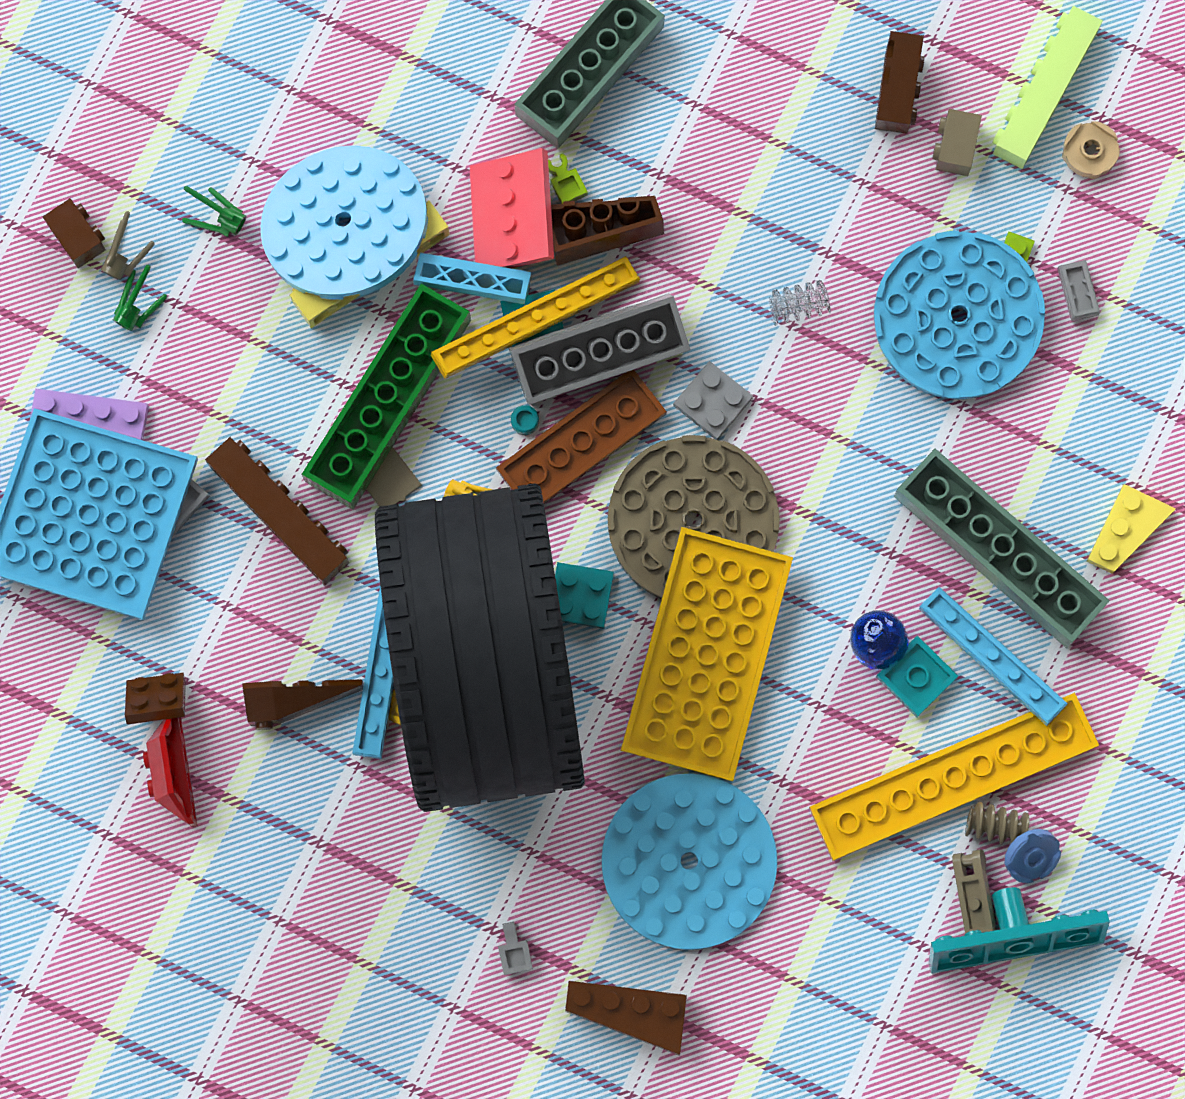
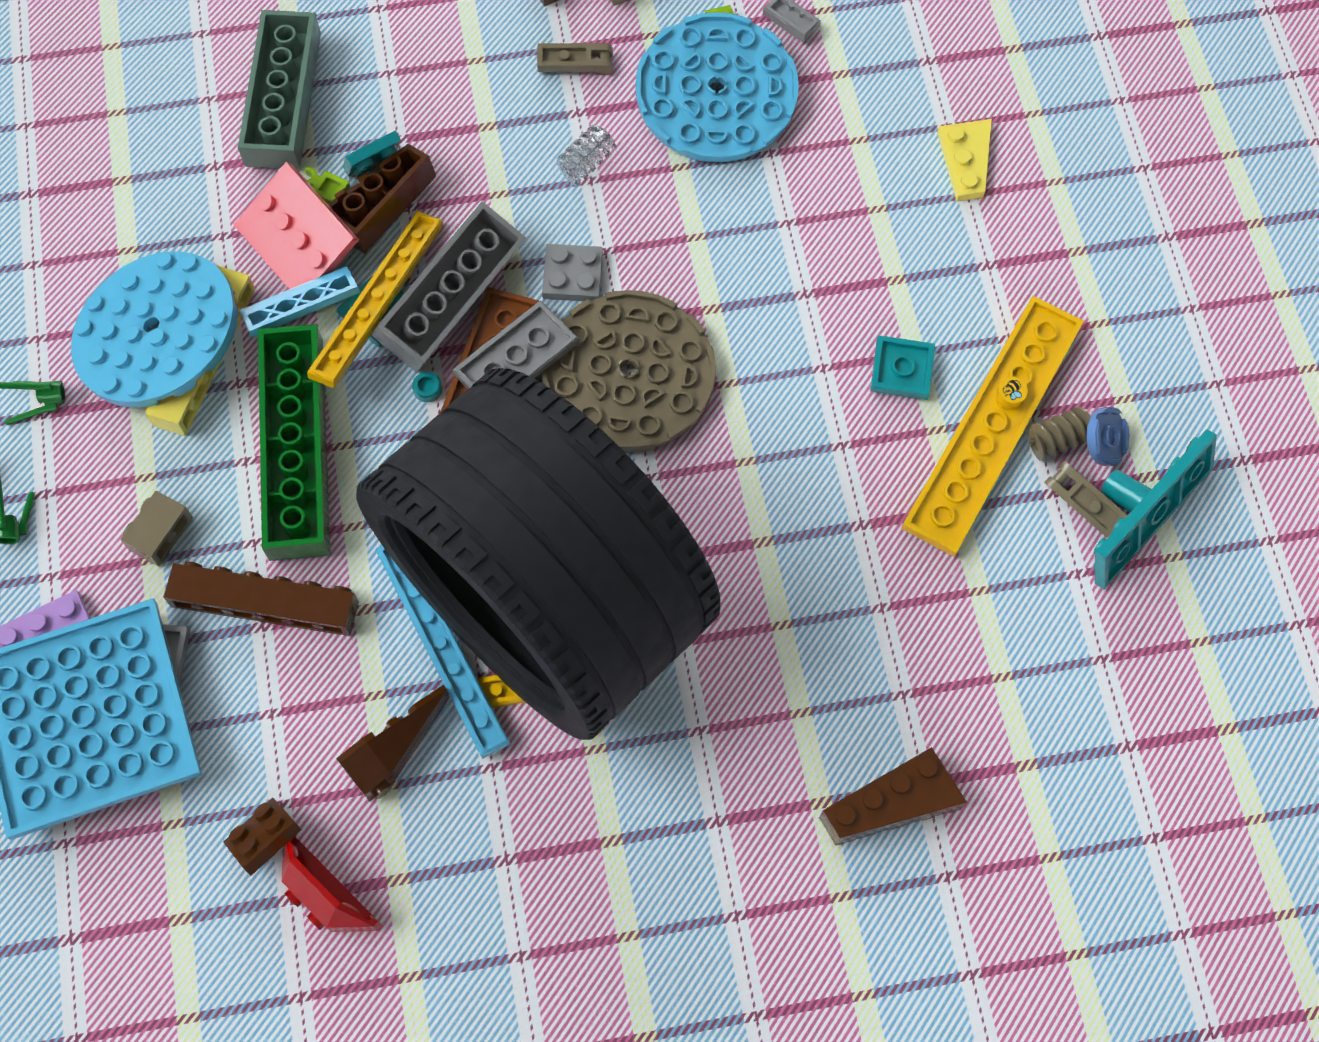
camera: 40 degrees left, 10 degrees down
(237, 395) = (156, 528): none -> dark tan brick
(392, 481) = (344, 512): dark tan piece -> none
(514, 955) = (755, 826): light grey plate -> none
(610, 446) = (524, 345): none -> light grey tile
(632, 183) = (378, 150): none -> teal plate
(680, 904) = (832, 685): medium azure plate -> none
(706, 654) = (724, 462): yellow plate -> none
(860, 201) = (575, 57): none -> dark tan plate
(878, 639) = (850, 357): clear blue cylinder -> none
(985, 763) = (1012, 392): none -> yellow tile
(993, 656) = (948, 311): medium azure tile -> none
(1001, 548) = (889, 227): sand green brick -> none

